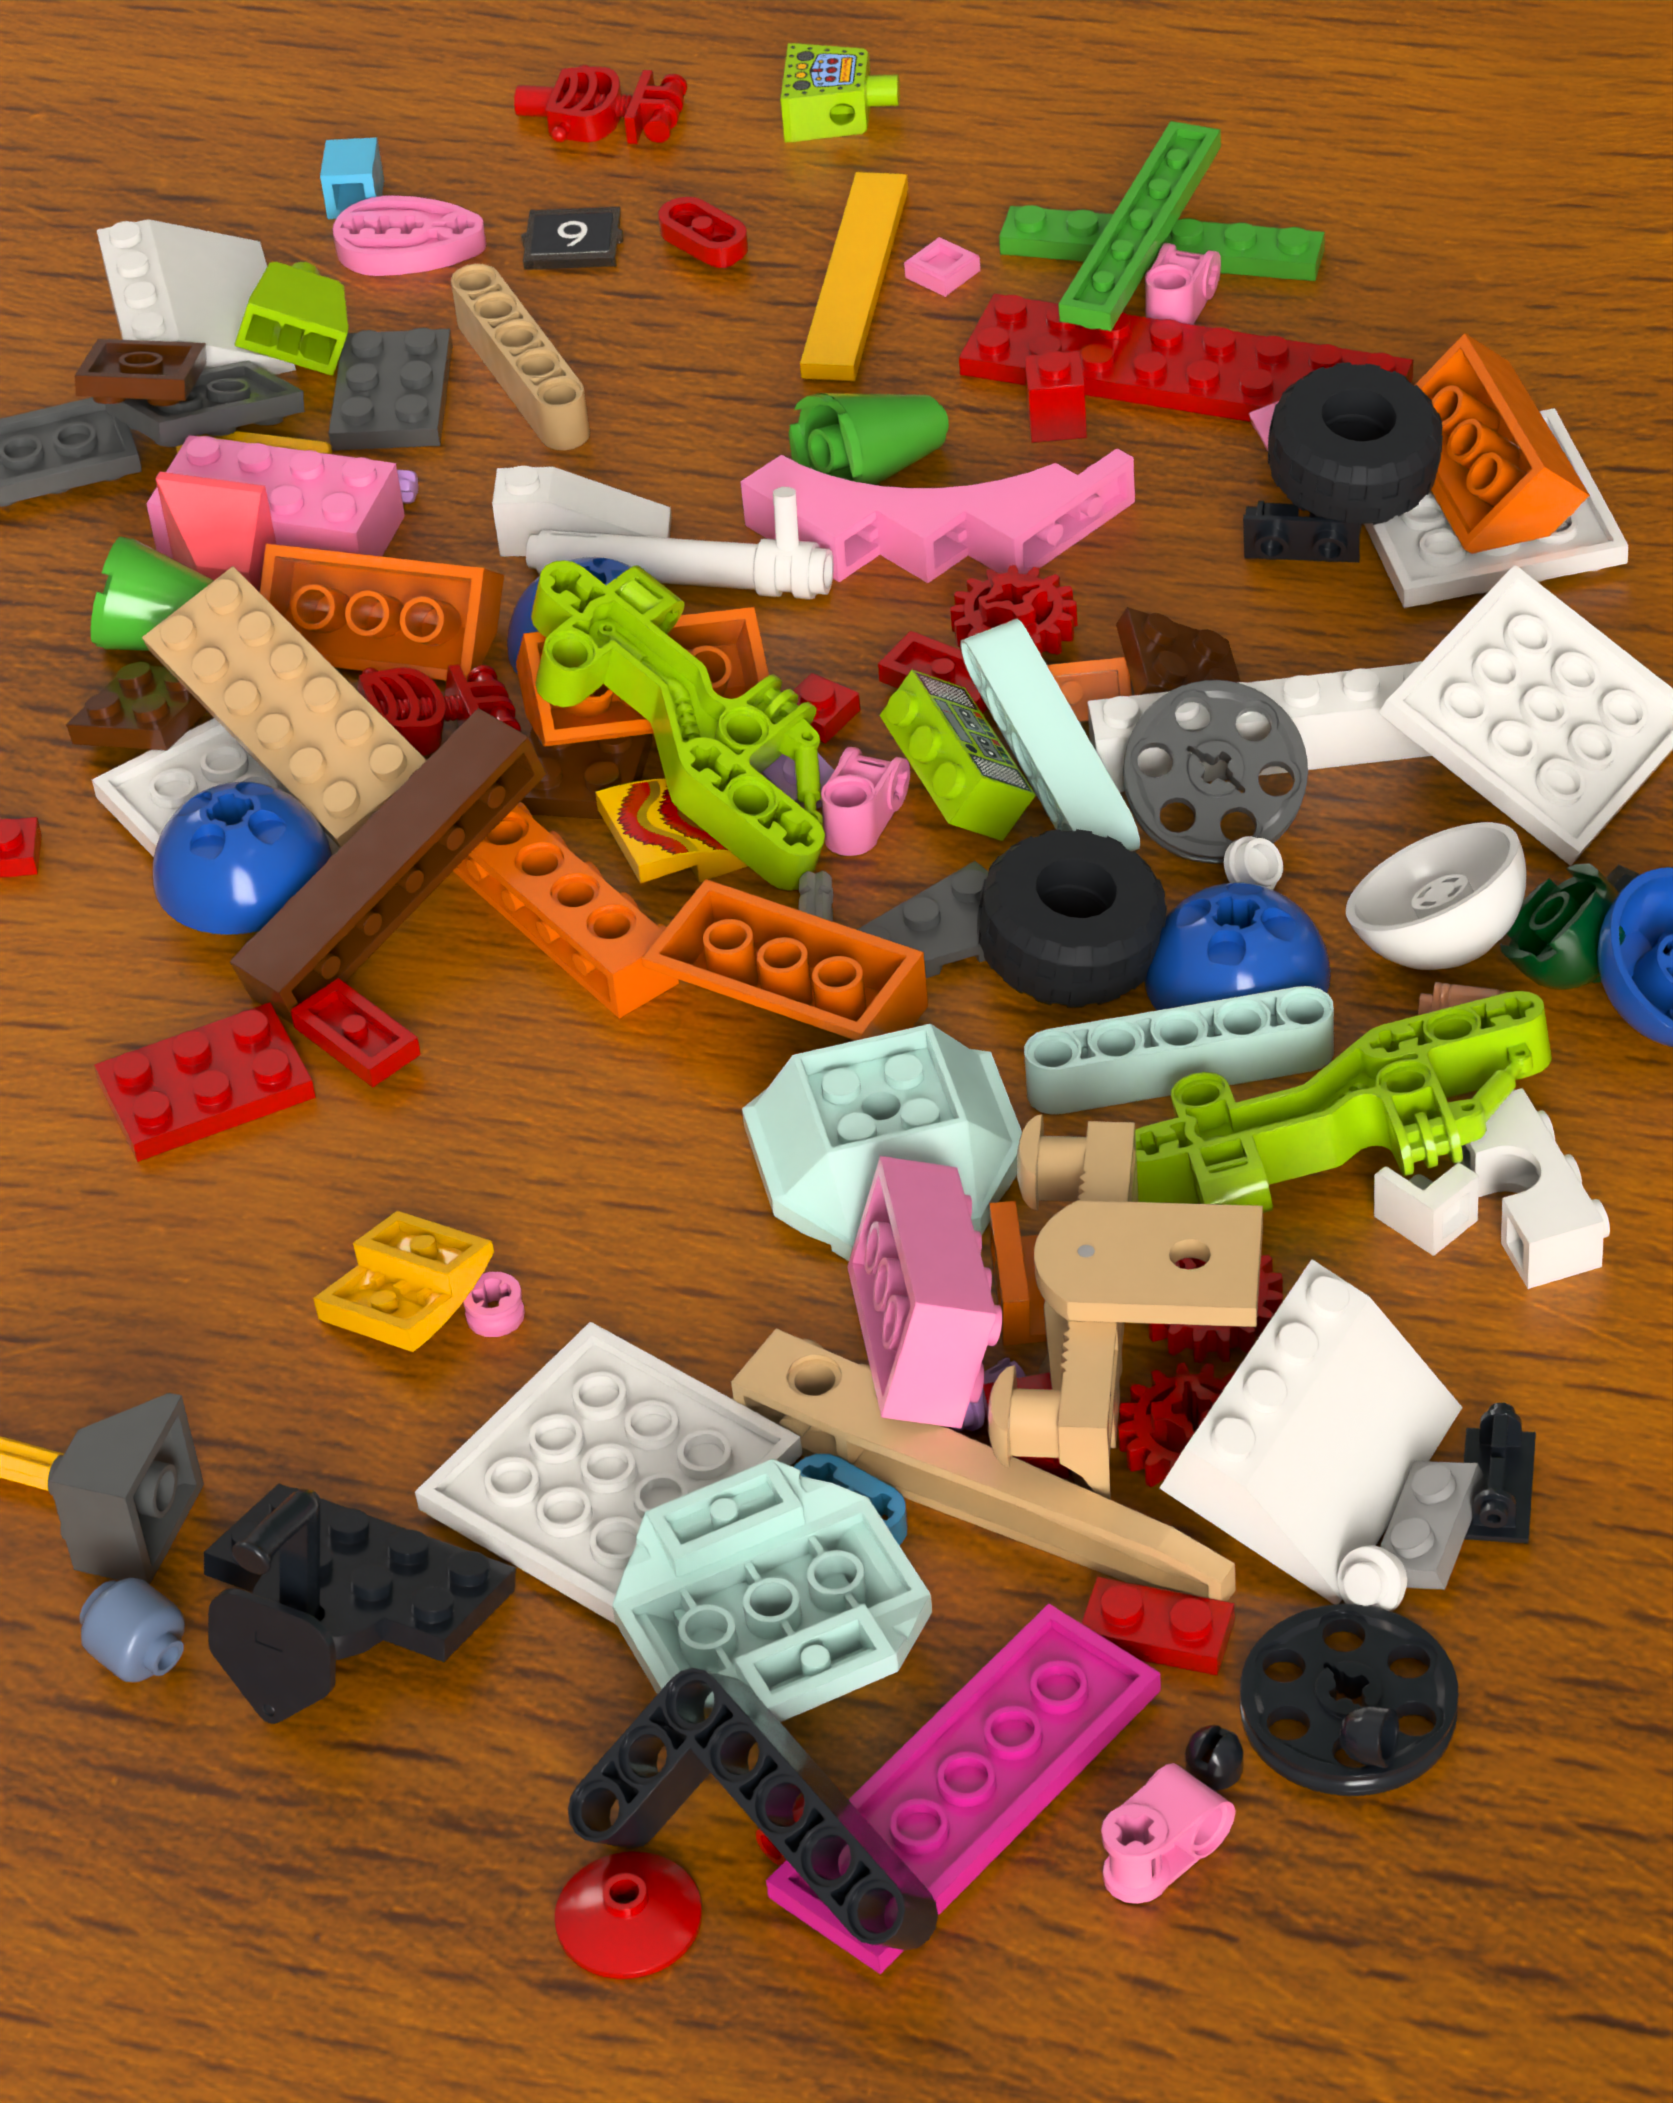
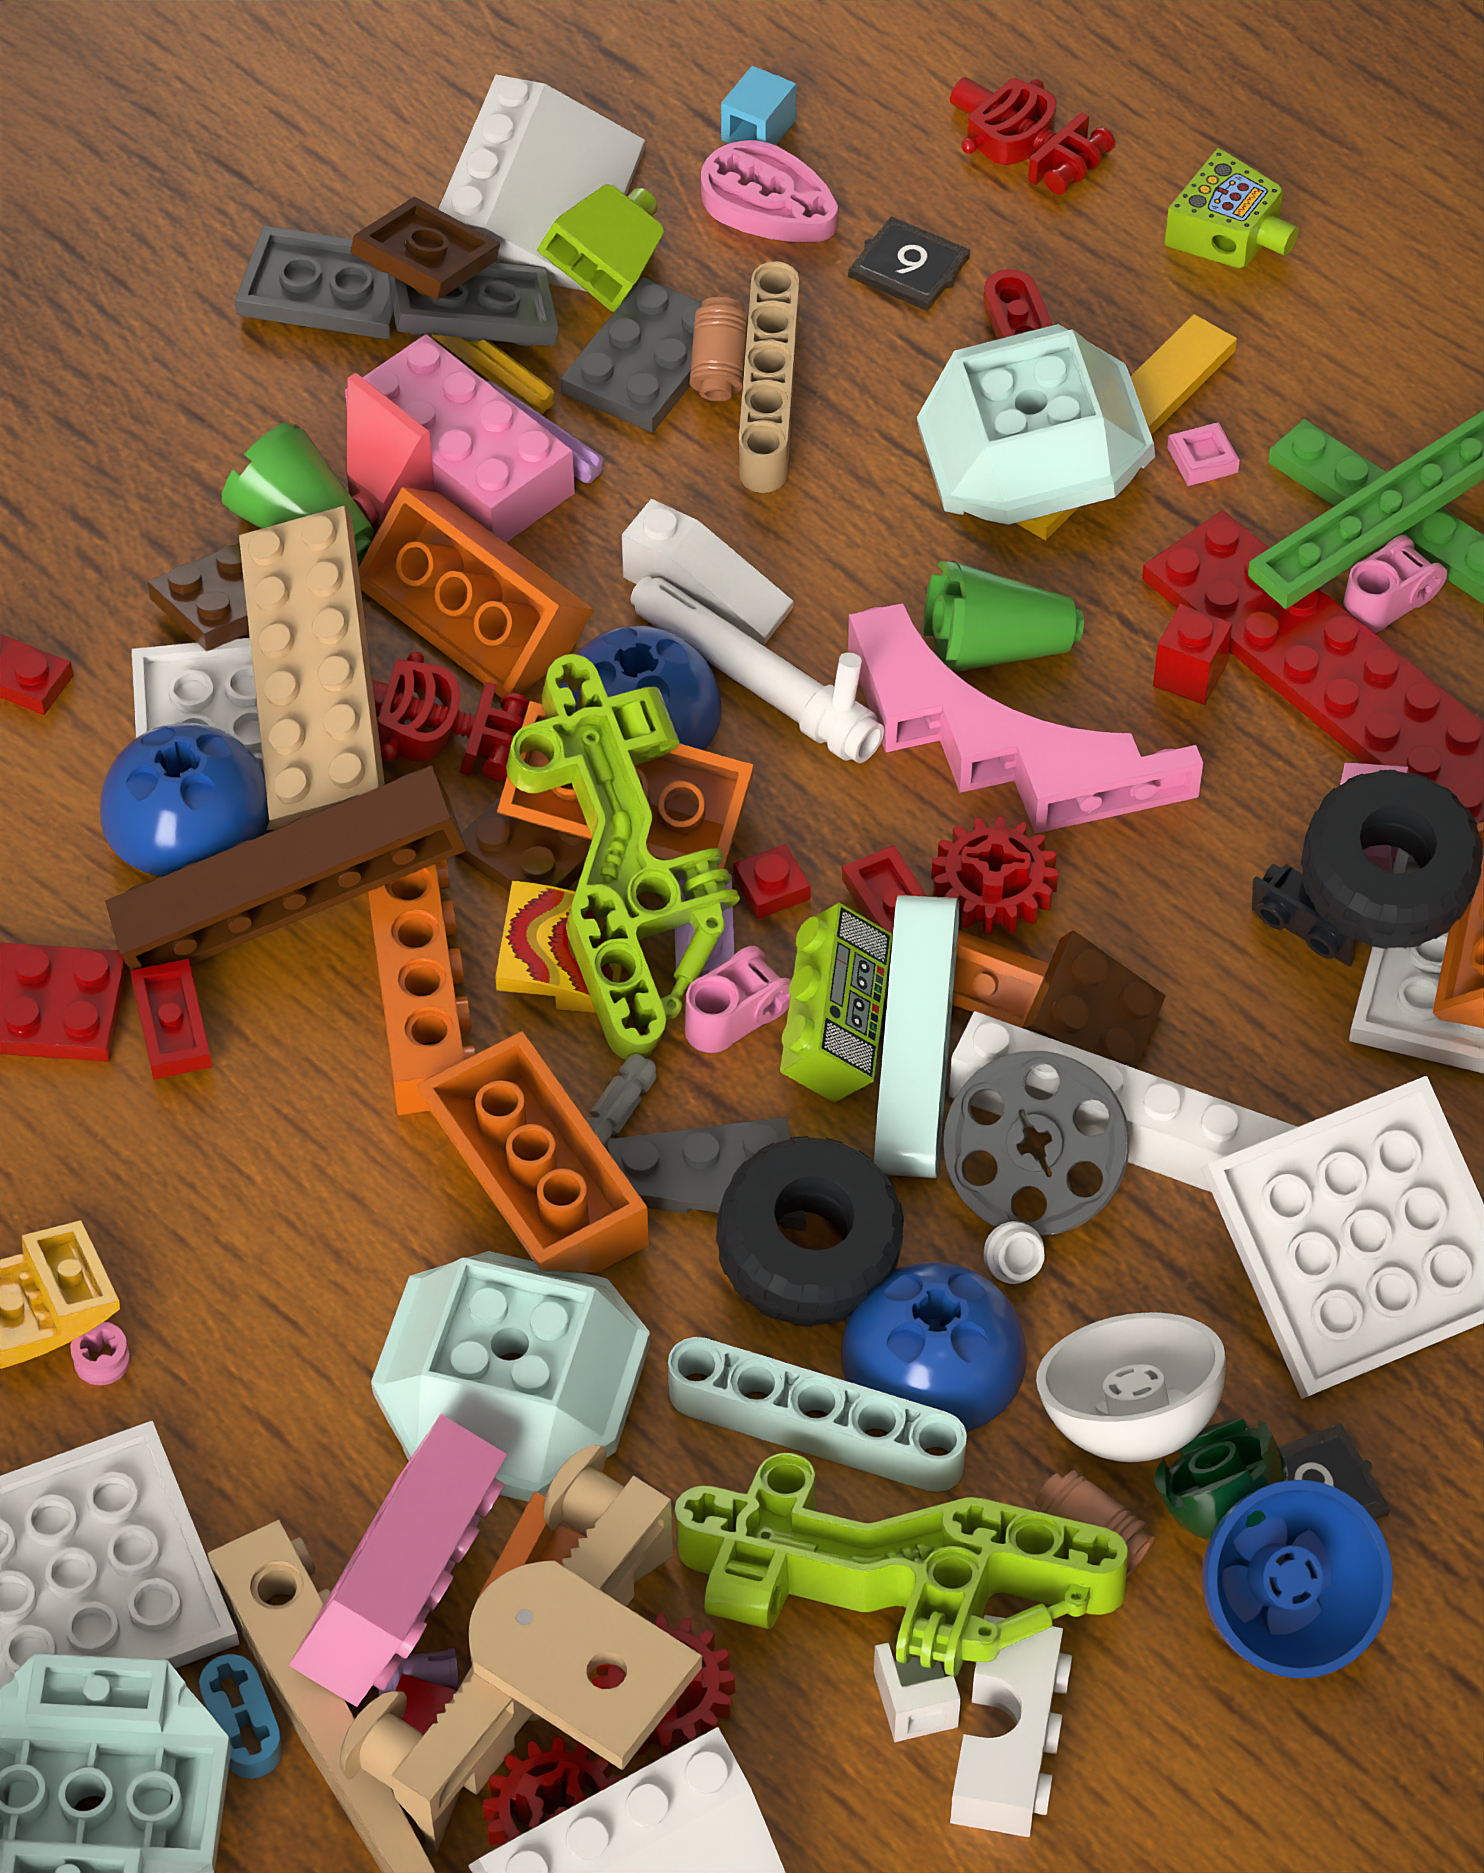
camera: 25 degrees right, 10 degrees up
(461, 350) = (719, 348): none -> nougat head
(783, 297) = (1033, 427): none -> light aqua piece

